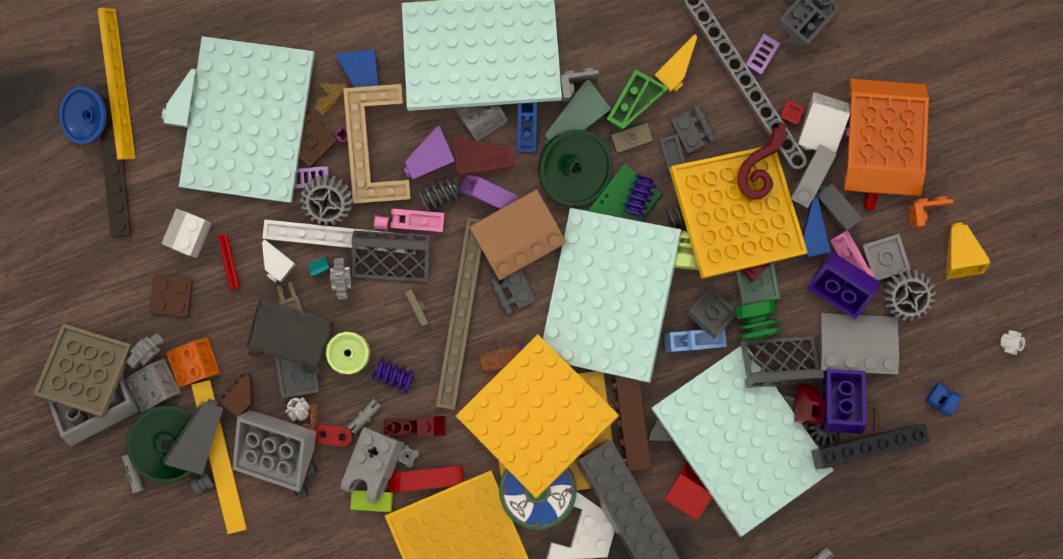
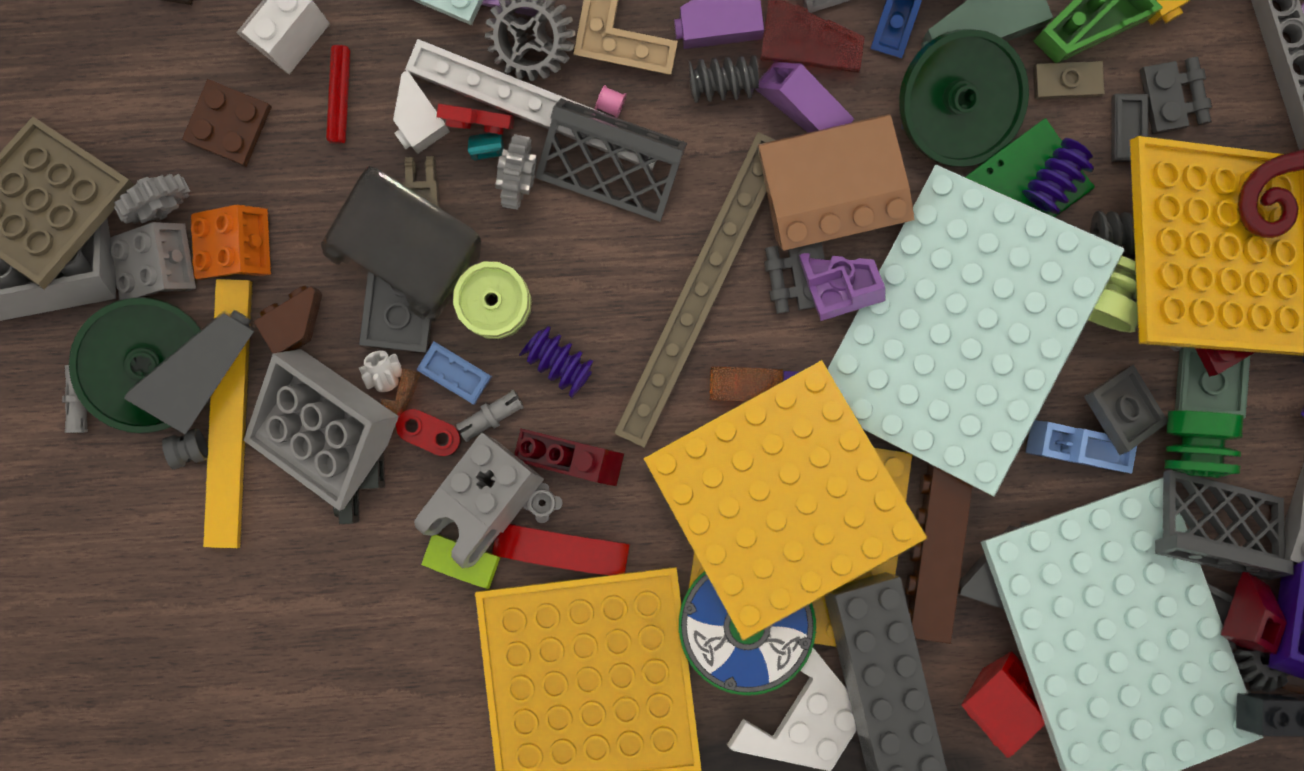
camera: 20 degrees right, 0 degrees up
(301, 256) = (463, 117): none -> red plate
(338, 398) = (454, 373): none -> medium blue plate
(417, 306) = (631, 257): dark tan plate -> none
(418, 220) = (672, 114): bright pink plate -> none
(537, 289) = (842, 284): none -> medium lavender slope

